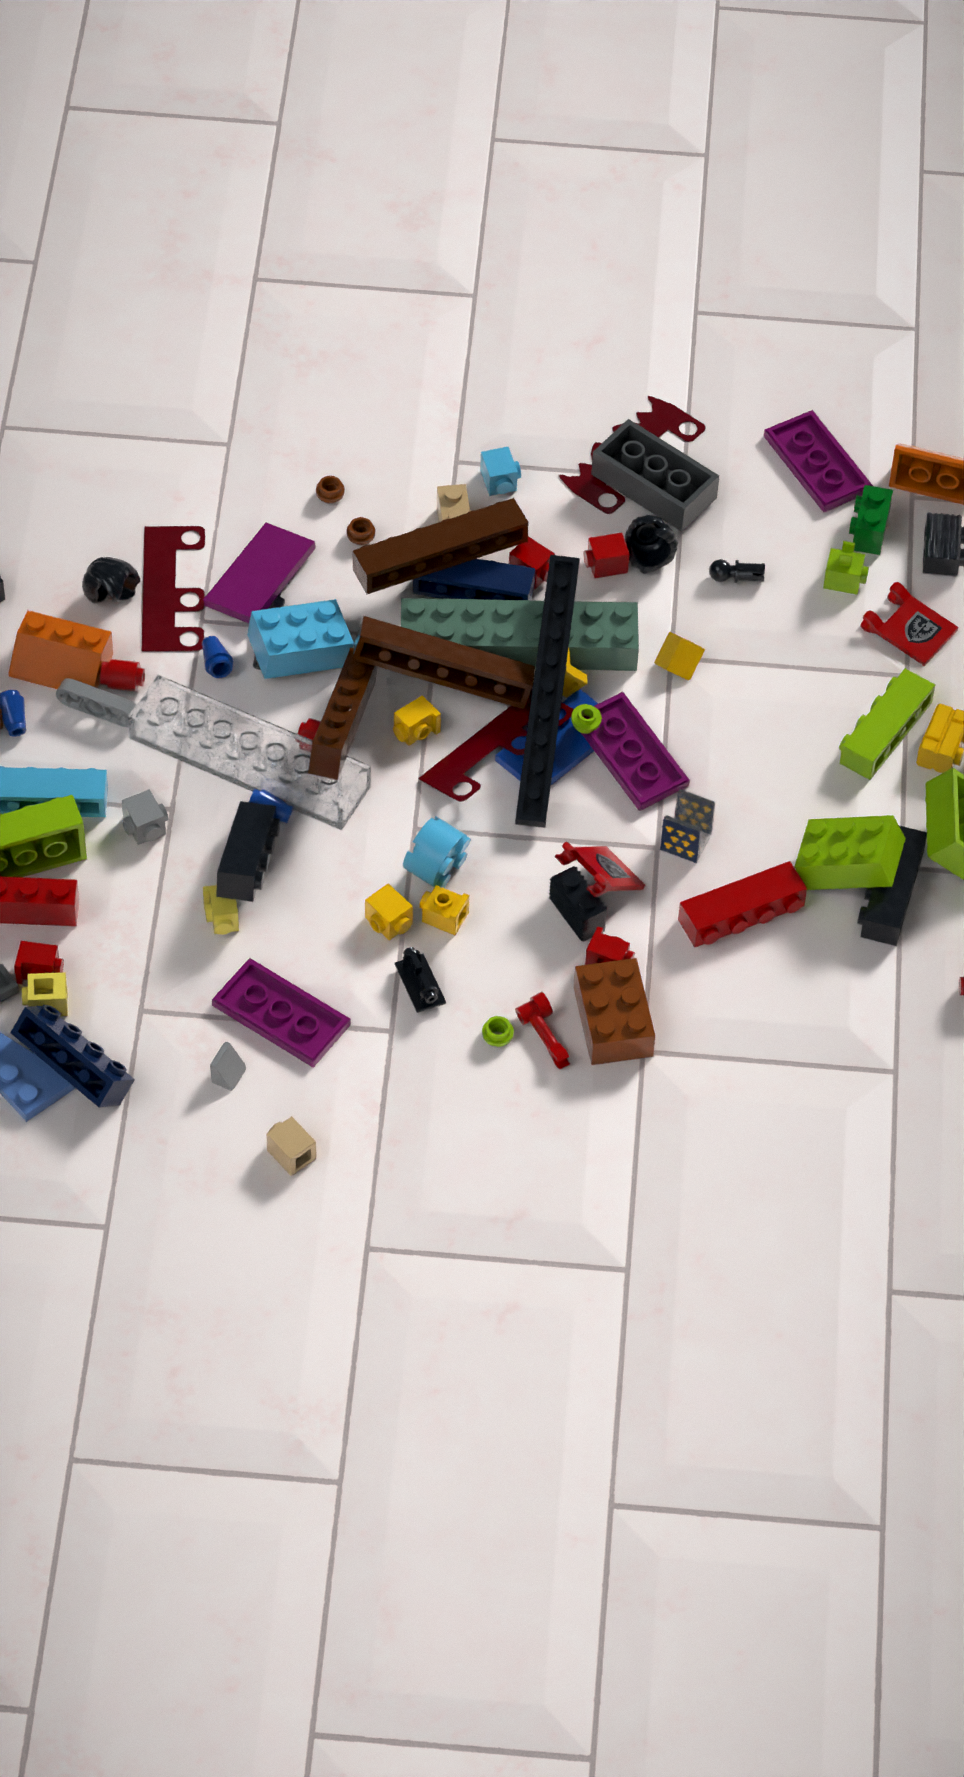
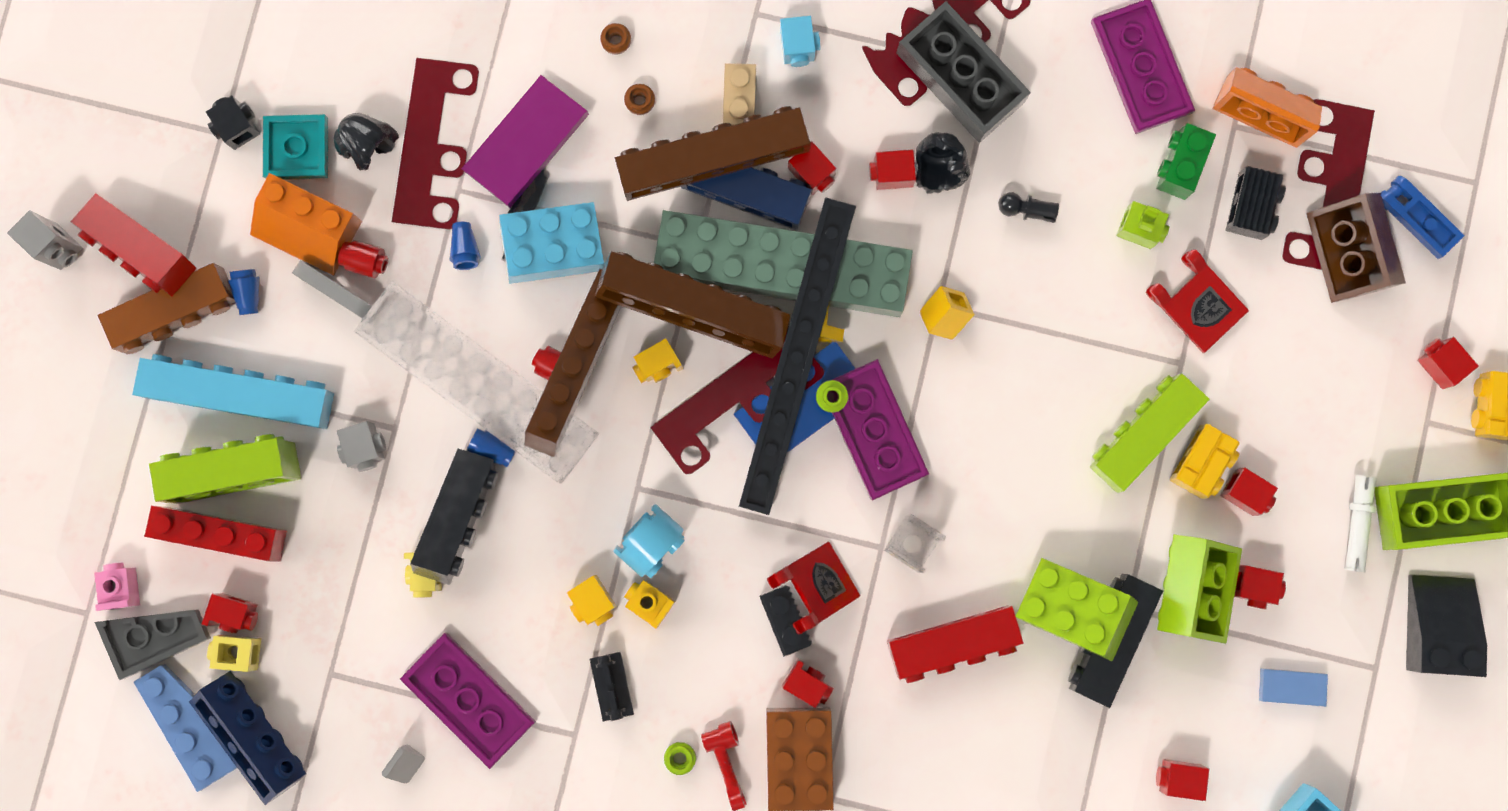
camera: 15 degrees right, 30 degrees up
(44, 594) = (295, 146): none -> teal plate

